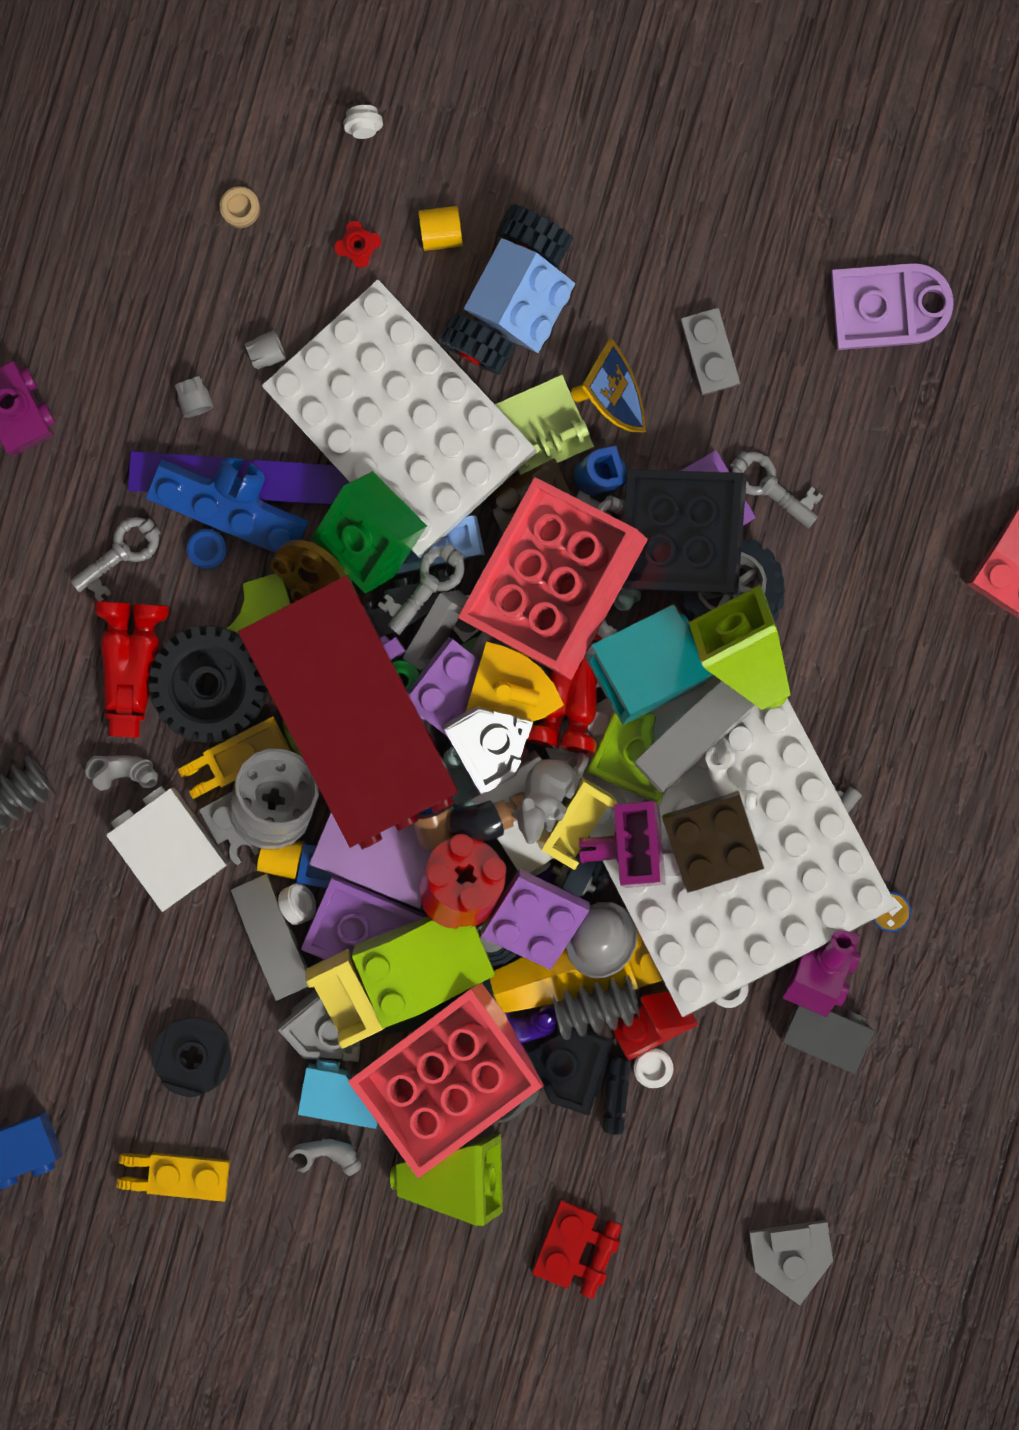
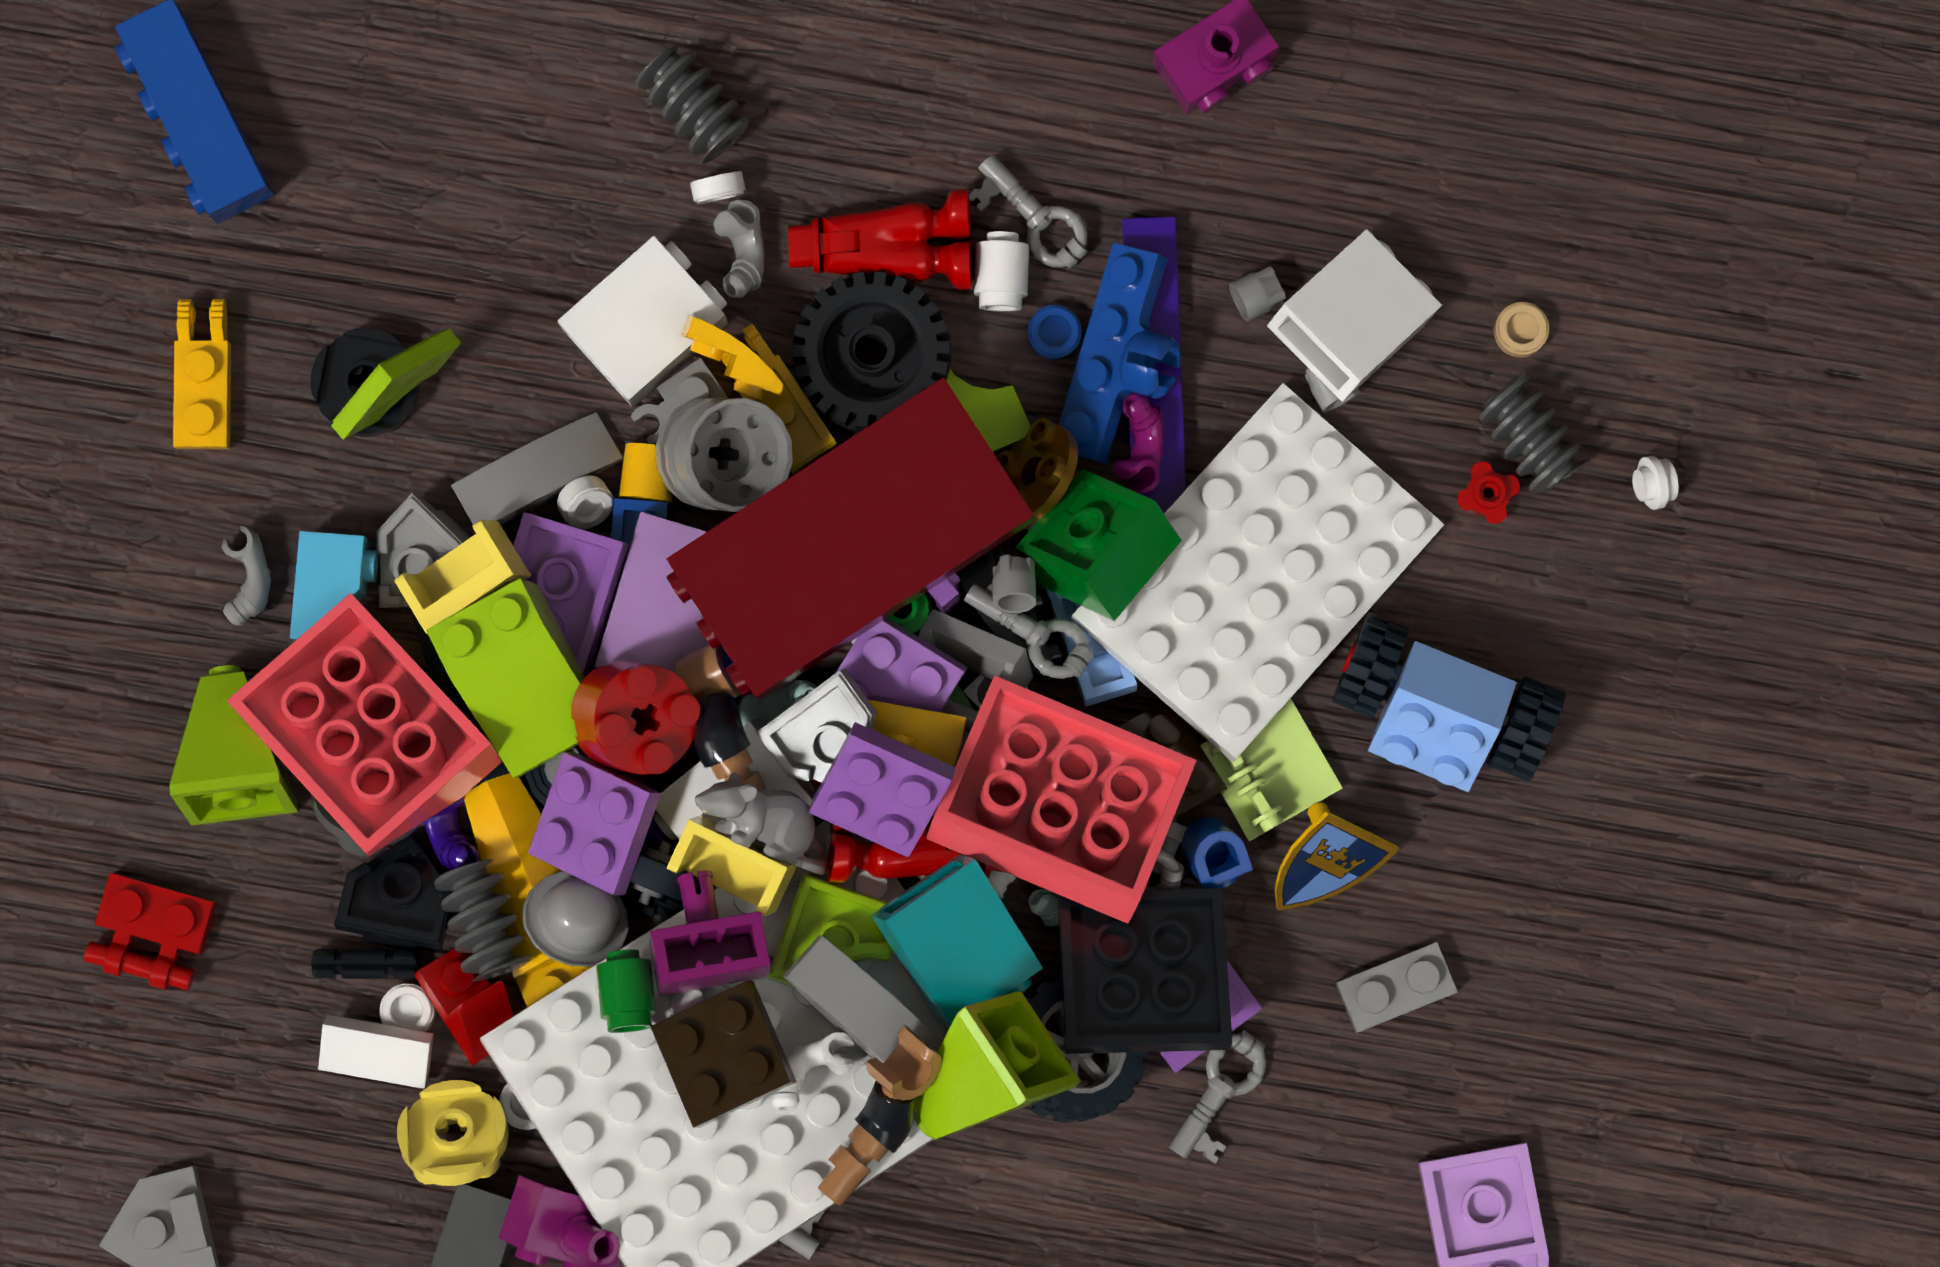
camera: 85 degrees right, 5 degrees down
(74, 784) = (718, 187): none -> white tile
(158, 582) = (1001, 271): none -> white brick
(195, 1035) = (393, 380): none -> lime tile
(213, 775) = (749, 370): none -> yellow slope
(218, 327) = (1354, 315): none -> white brick
(311, 493) = (1144, 462): none -> magenta piece
(319, 207) = (1531, 435): none -> dark grey piece
(392, 596) = (1014, 584): none -> light grey hose
(440, 228) = (1523, 602): yellow brick -> none
(534, 707) = (882, 789): none -> medium lavender plate
(660, 907) = (626, 991): none -> green brick
(681, 1093) = (375, 1051): none -> white tile
(767, 1039) = (457, 1161): none -> light yellow plate
(769, 728) = (886, 1115): none -> medium nougat piece

